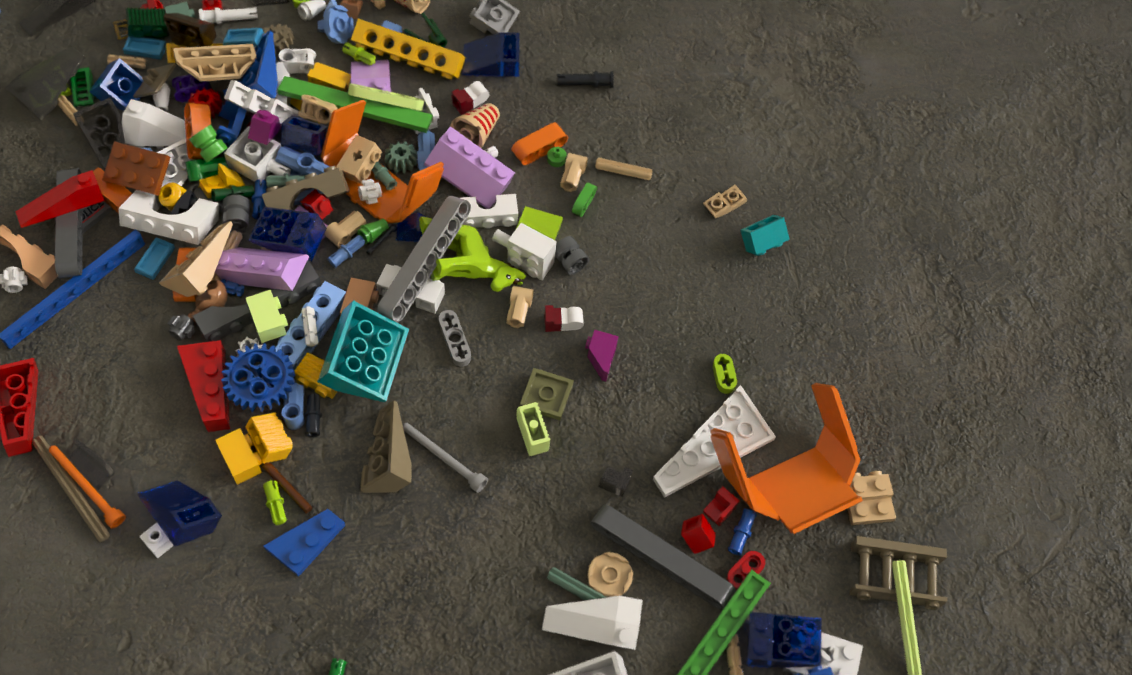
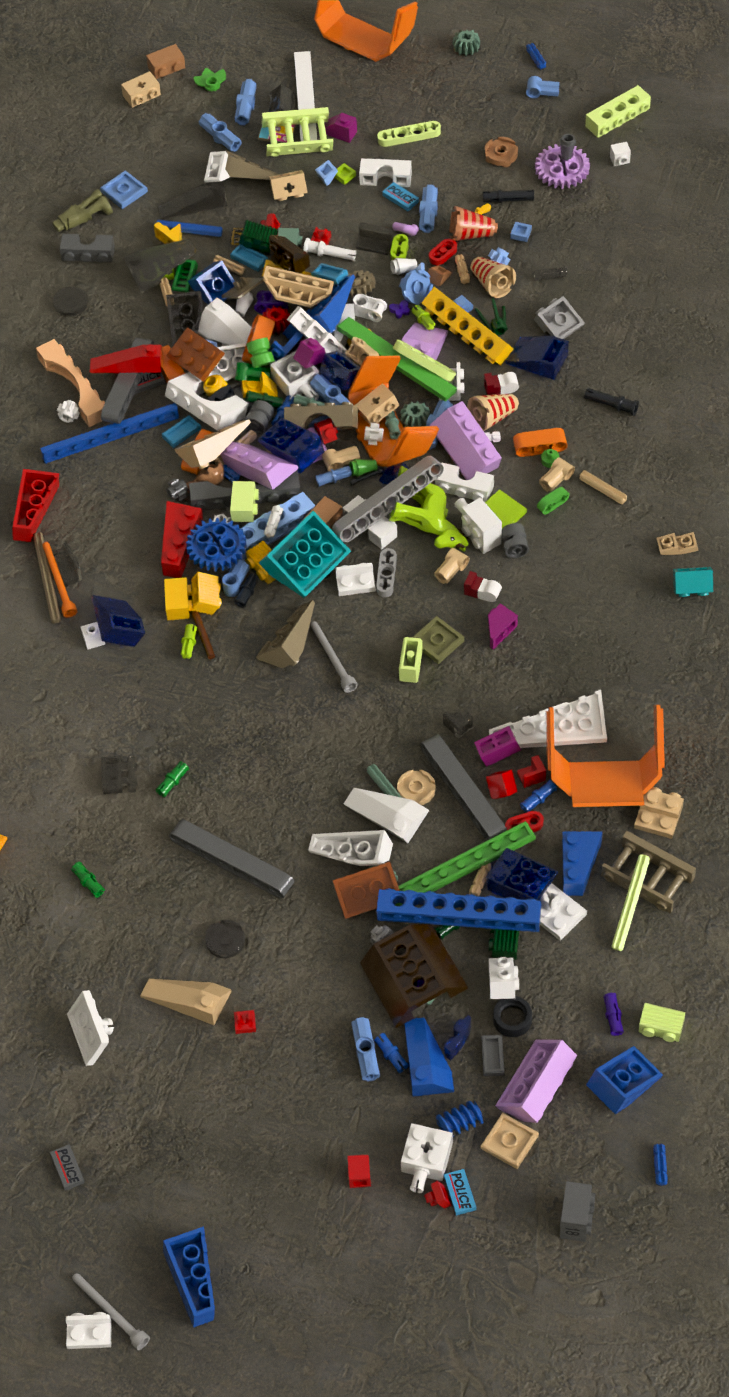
camera: 35 degrees right, 5 degrees down
(43, 50) = (166, 235): none -> yellow slope
(64, 36) = (194, 228): none -> blue axle
(305, 542) = (199, 677): blue wing -> none
(329, 53) = (400, 309): none -> dark purple piece
(329, 77) = (386, 329): yellow panel -> none
(425, 358) = (355, 579): none -> white bracket
(674, 492) = (497, 746): none -> magenta hinge
(720, 375) = (590, 676): lime beam -> none
(824, 590) = (578, 858): none -> blue wedge

